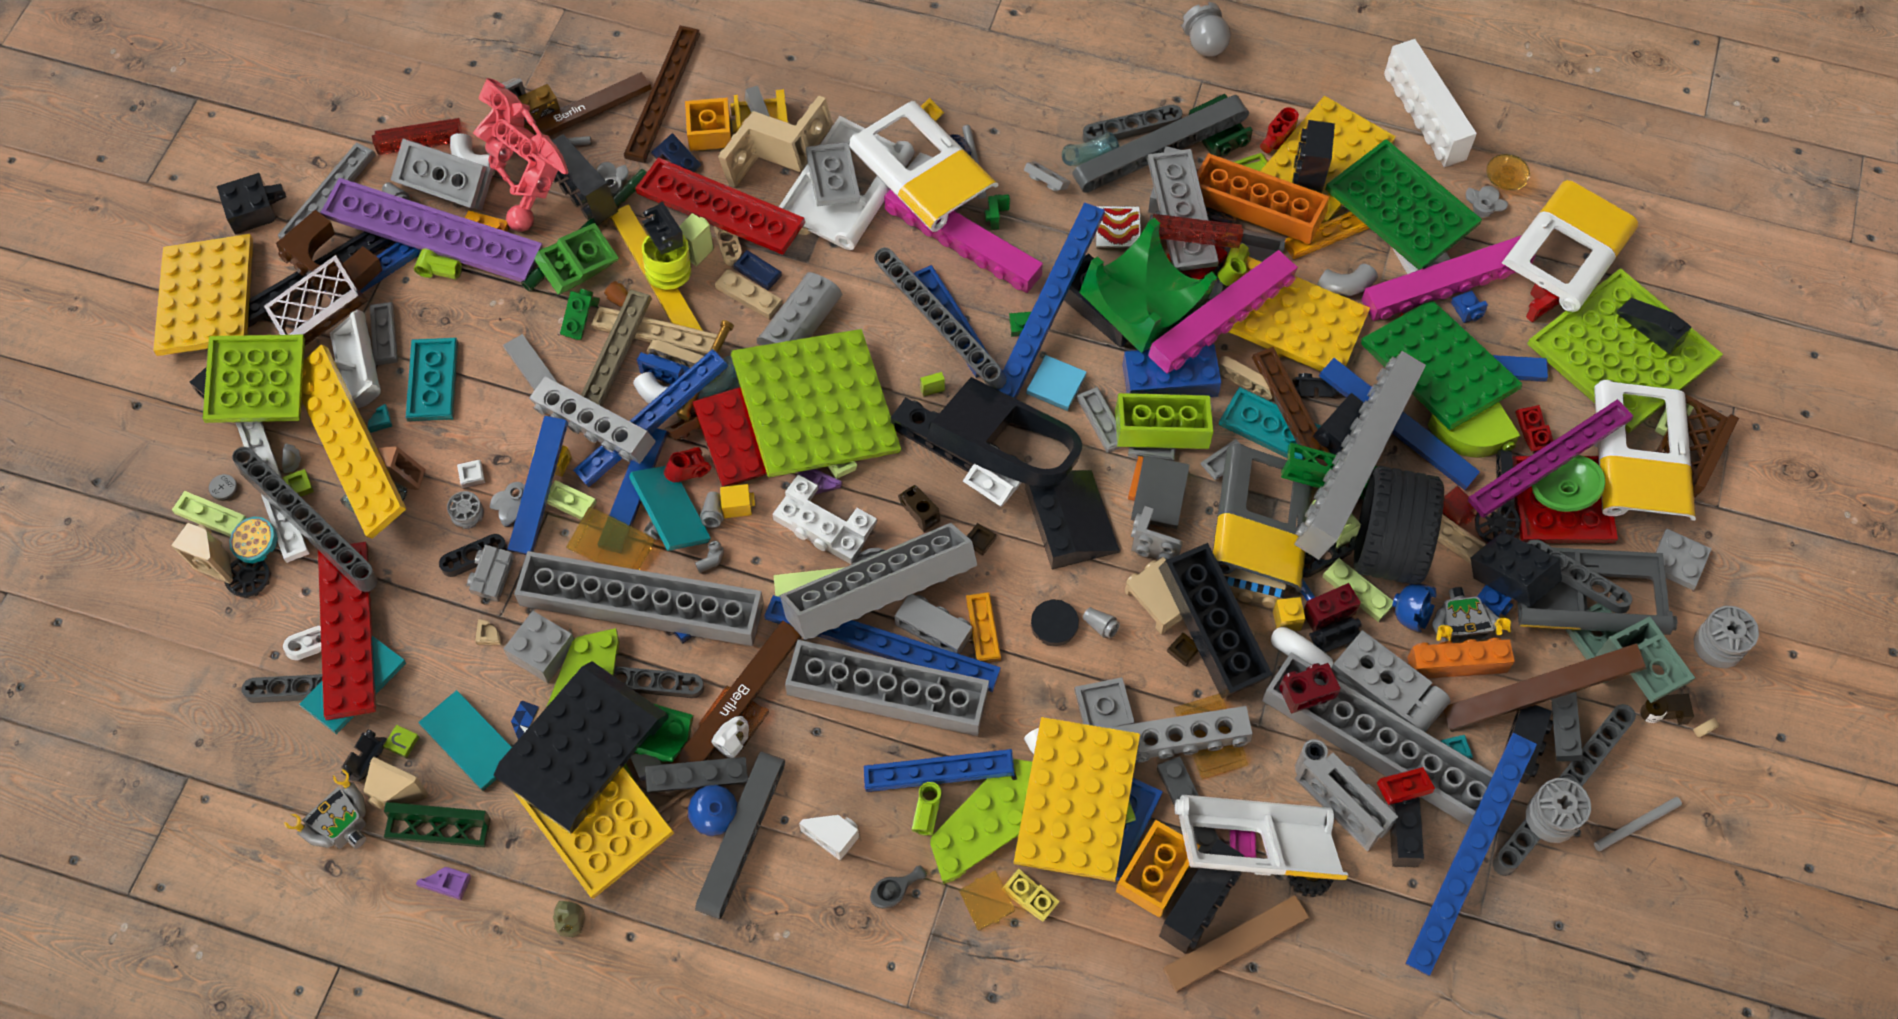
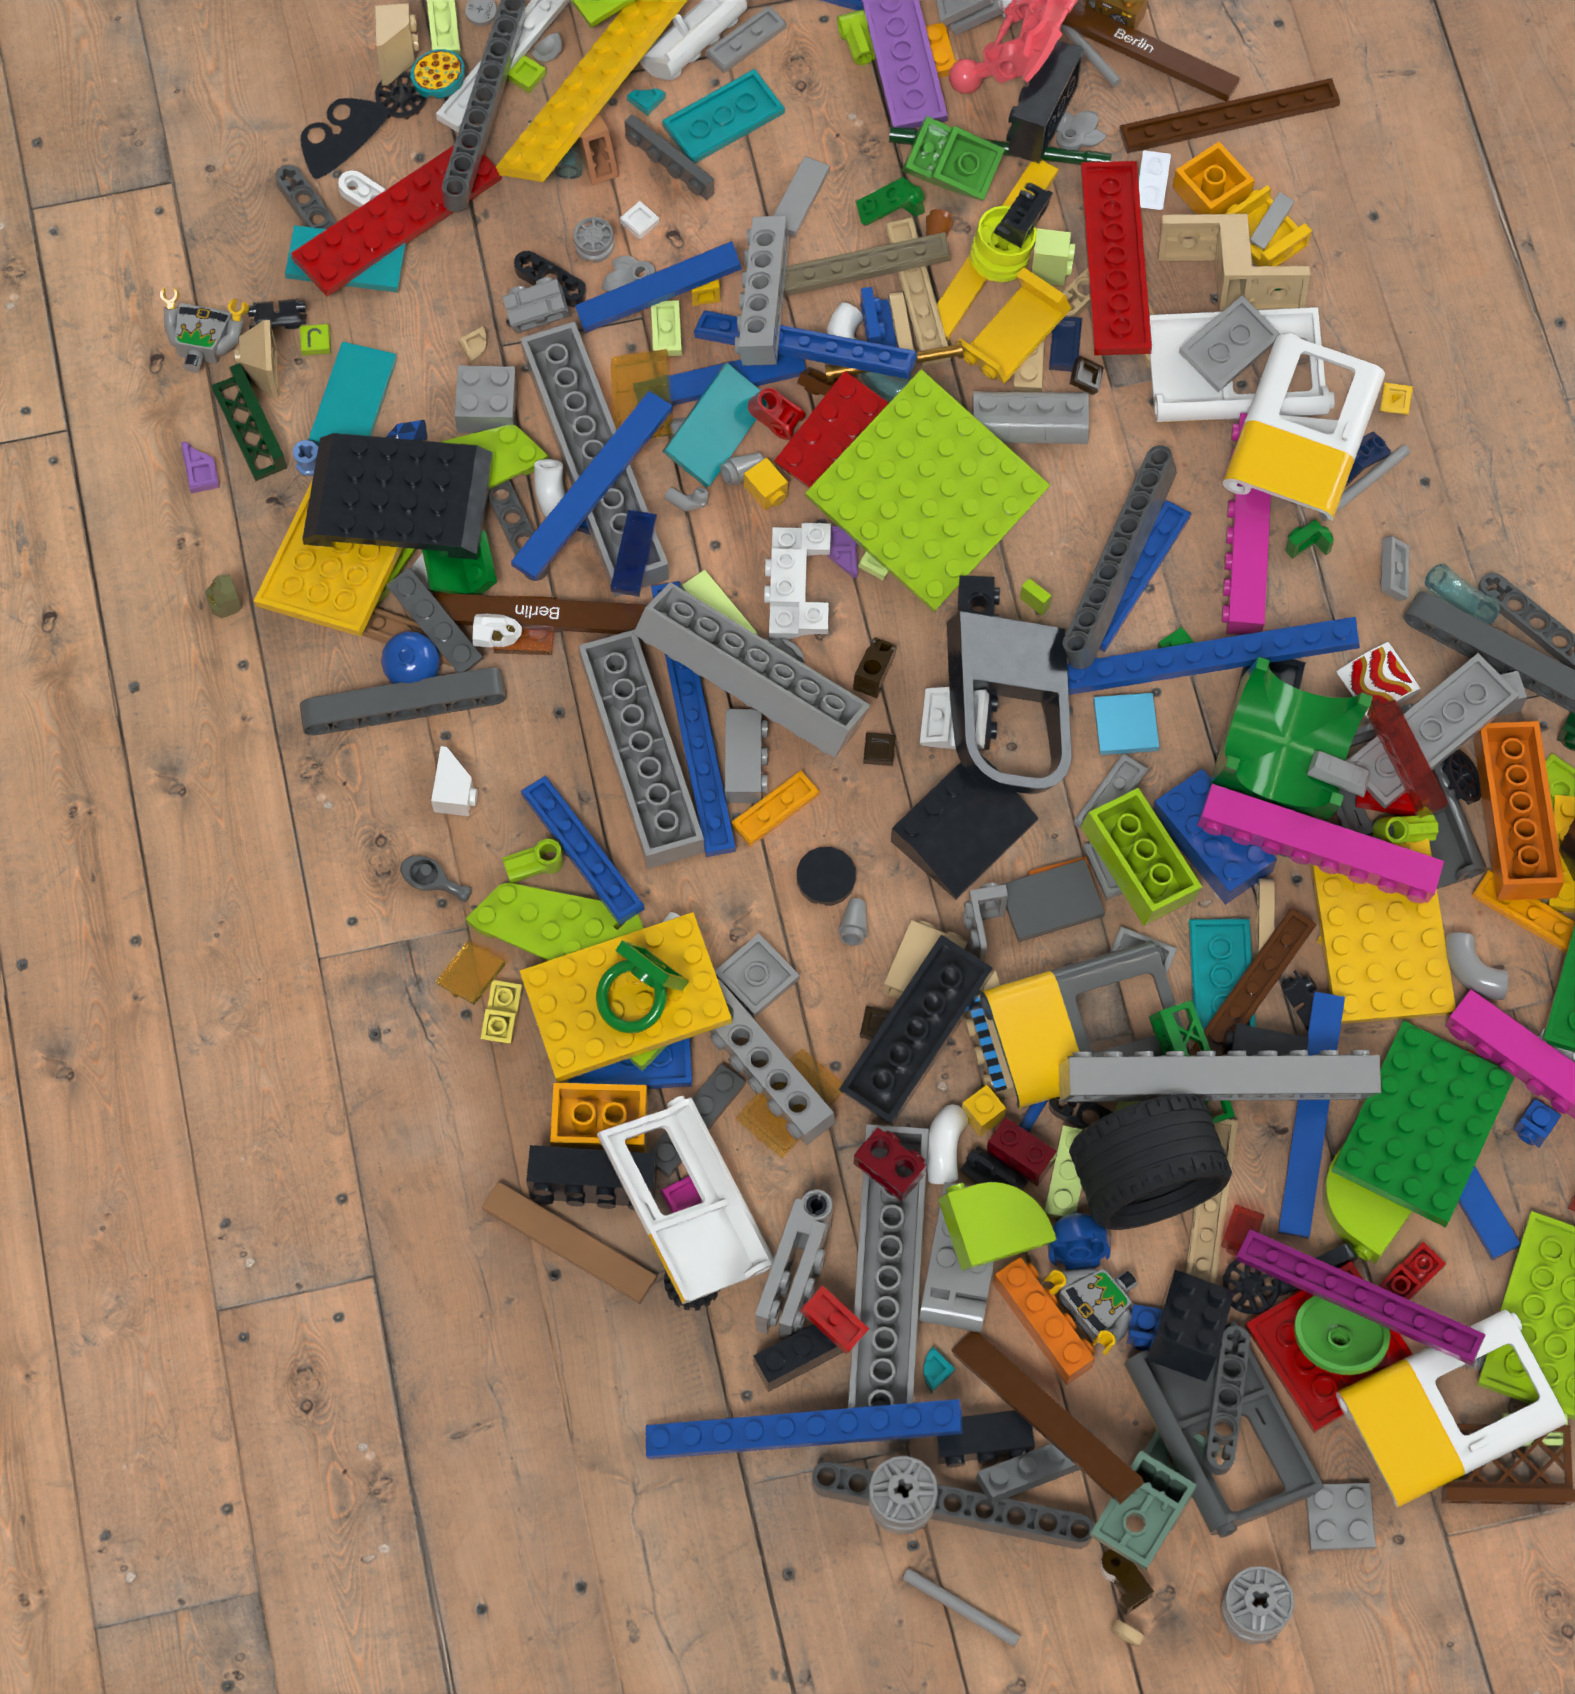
camera: 60 degrees right, 5 degrees up
(252, 621) = (356, 130): none -> black piece
(438, 427) = (673, 160): none -> dark grey plate
(489, 796) = (305, 455): none -> medium blue bush
(651, 644) = (548, 484): none -> white cylinder
(668, 608) = (591, 486): none -> blue tile
(730, 285) = (1017, 328): none -> yellow panel
(739, 607) = (633, 553): none -> clear blue tile
(791, 269) = (1086, 375): none -> dark brown tile
(1082, 764) = (647, 969): none -> green tile
(1184, 272) = (1339, 773): none -> light grey tile
(1388, 647) = (993, 1222): none -> lime brick

